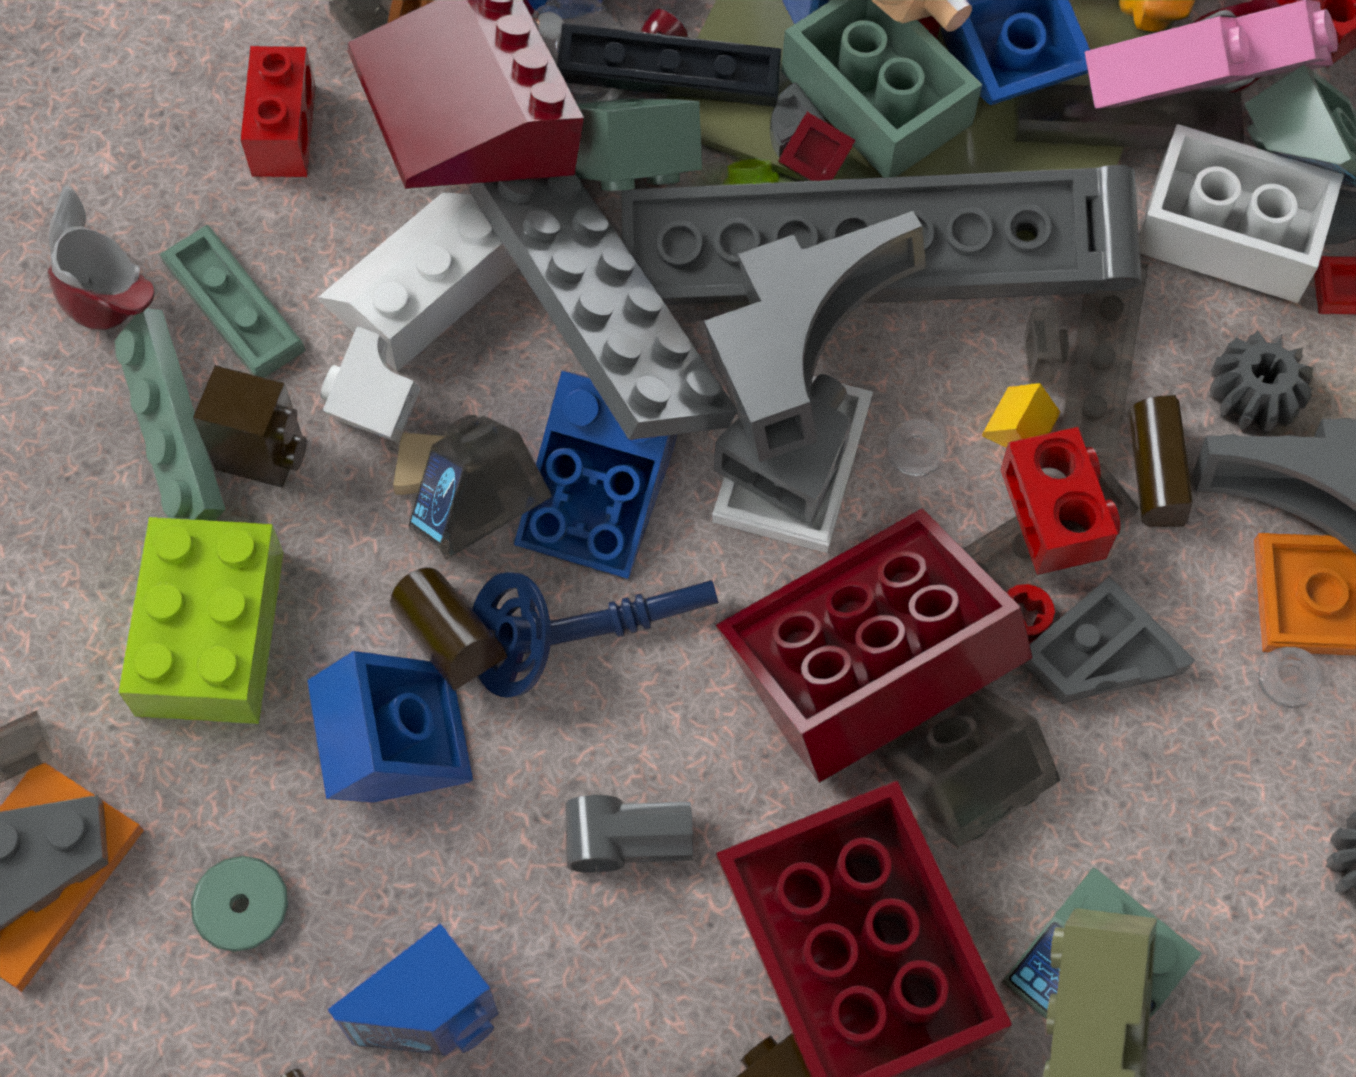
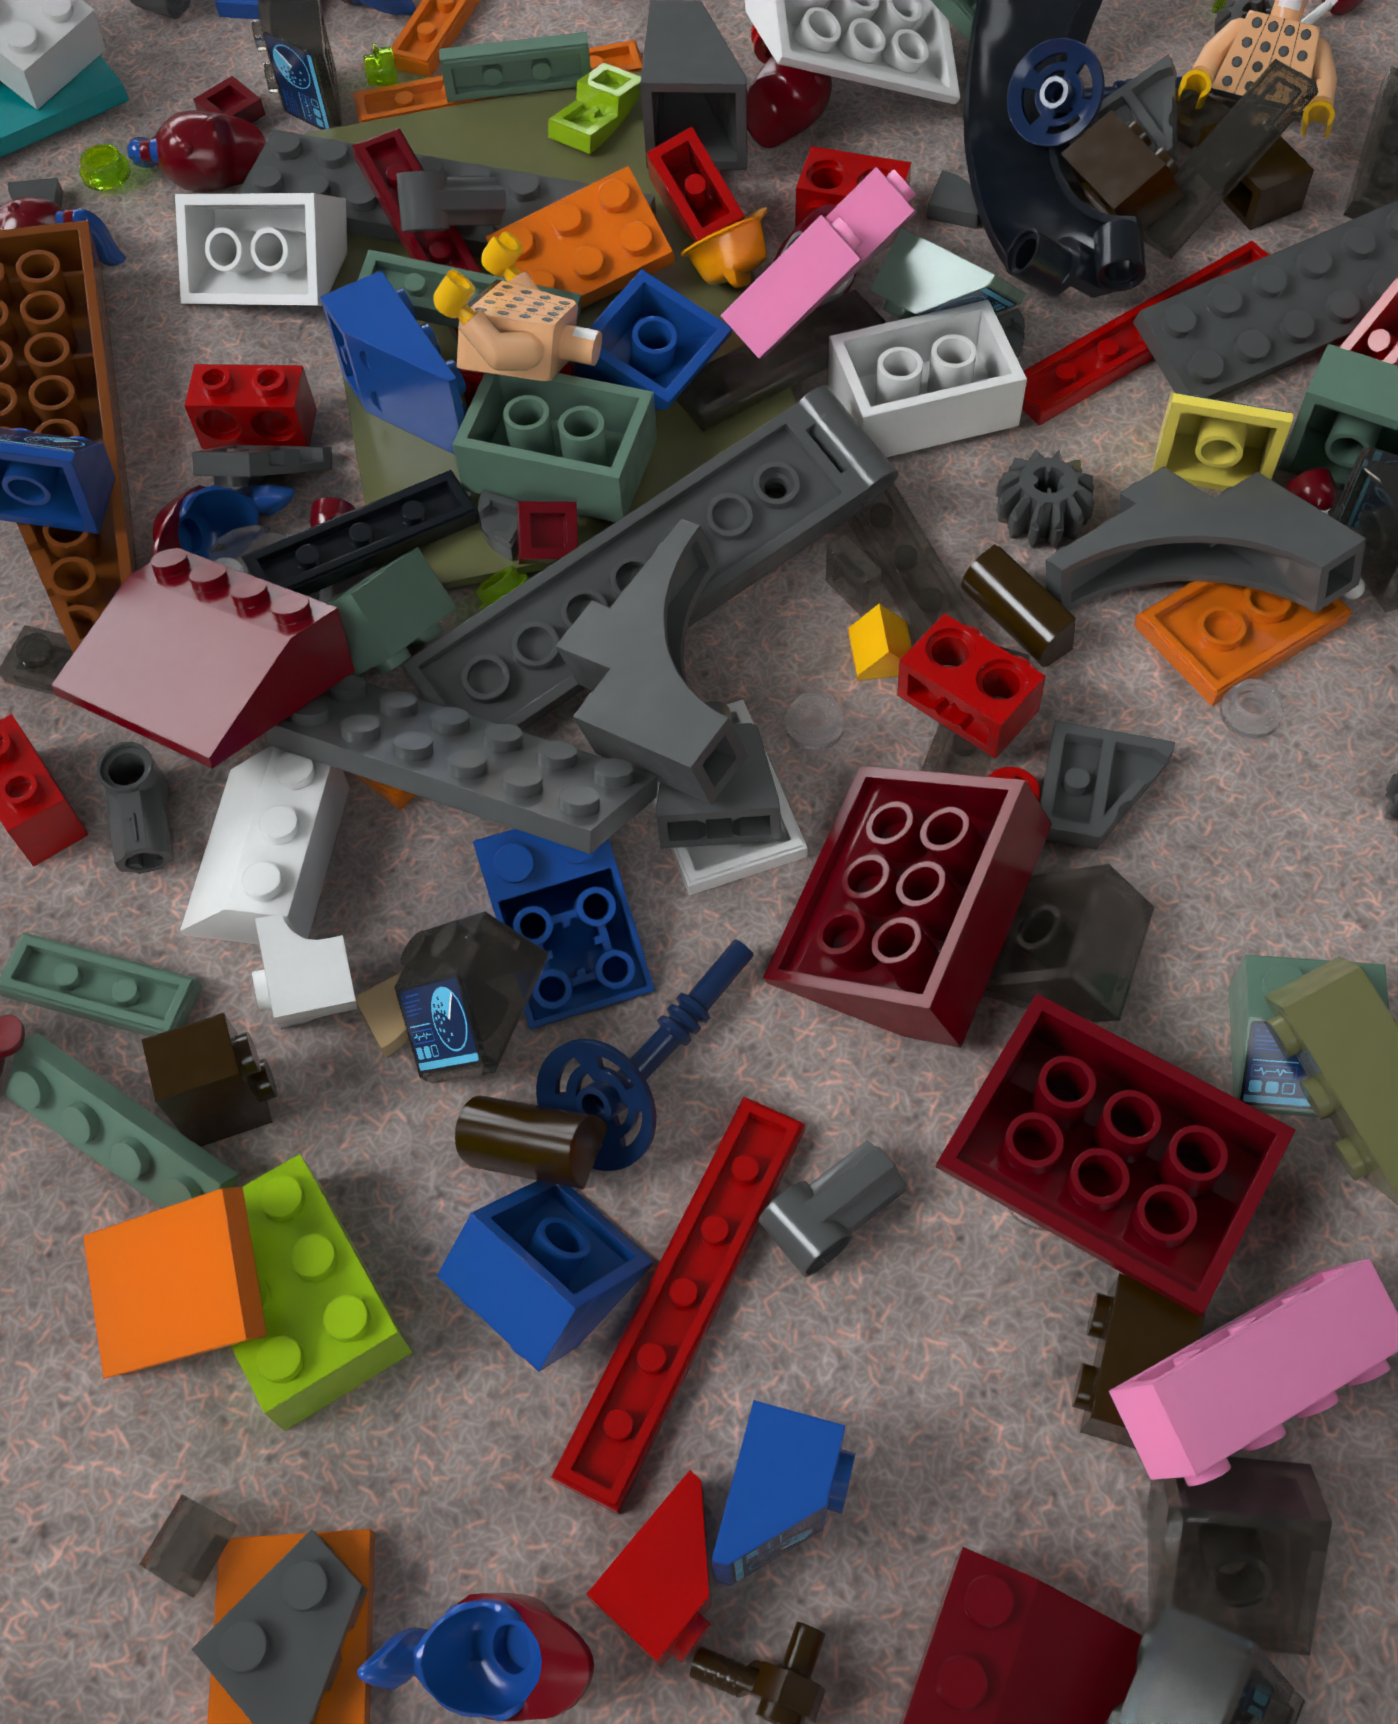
camera: 30 degrees left, 5 degrees down
(123, 558) = (174, 1283): none -> orange tile
(146, 966) = (490, 1659): none -> blue hair
(224, 885) = (494, 1529): sand green piece -> none
(292, 998) = (662, 1578): none -> red slope
(350, 181) = (136, 810): none -> dark grey piece
(470, 822) = (678, 1307): none -> red tile

